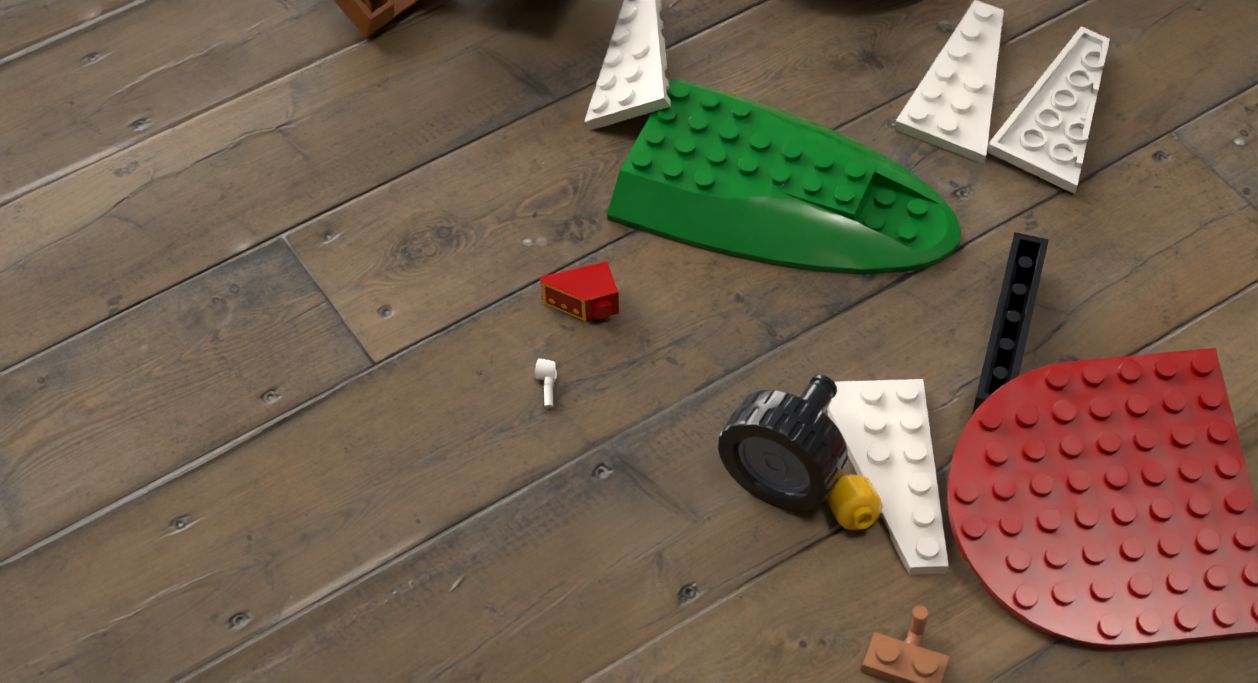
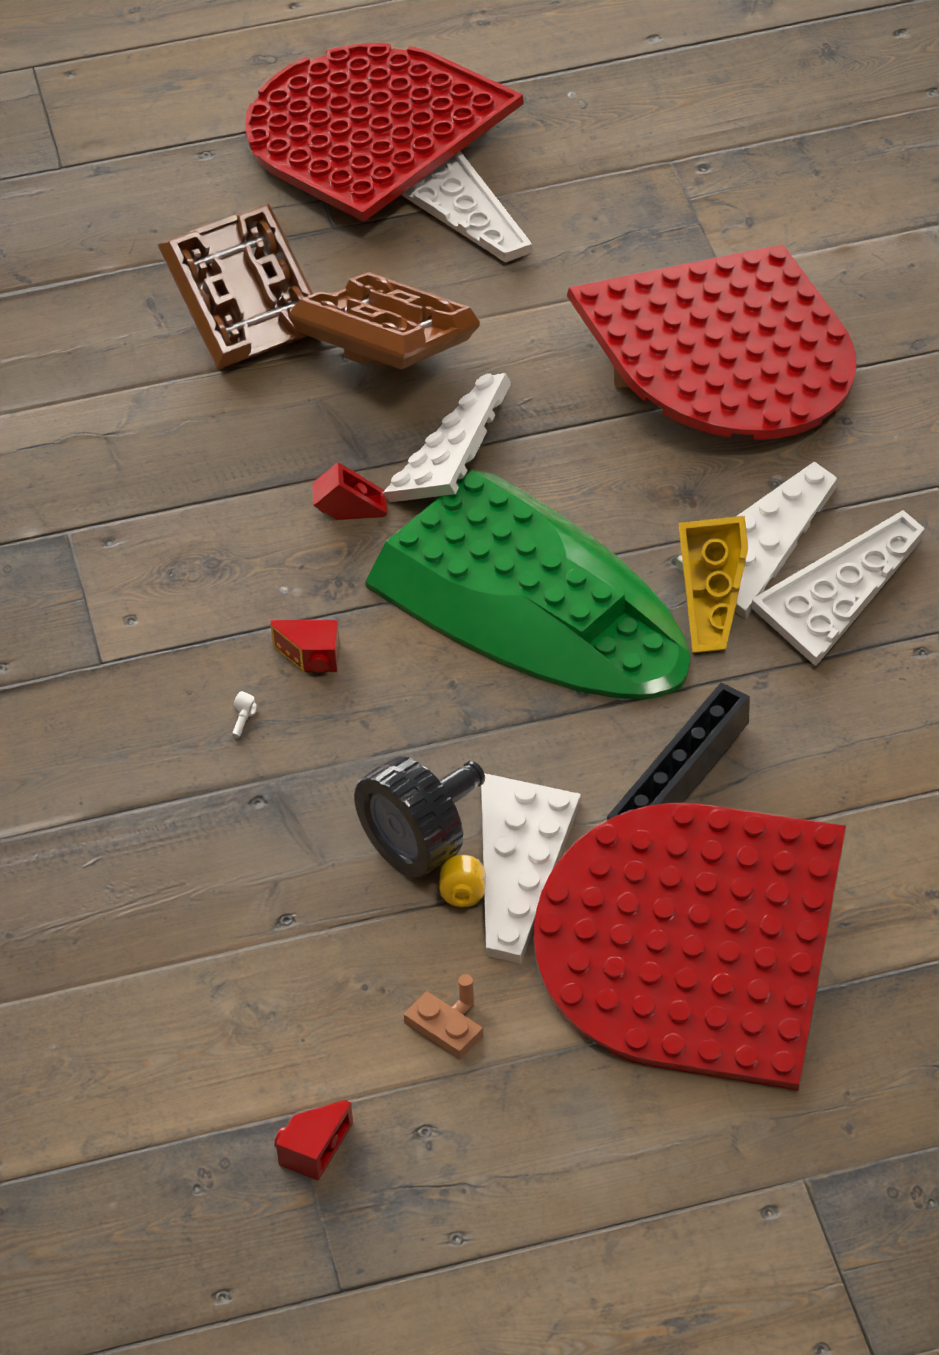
camera: 20 degrees right, 5 degrees down
(552, 132) = (348, 495): none -> red slope
(946, 127) = (713, 571): none -> yellow wedge

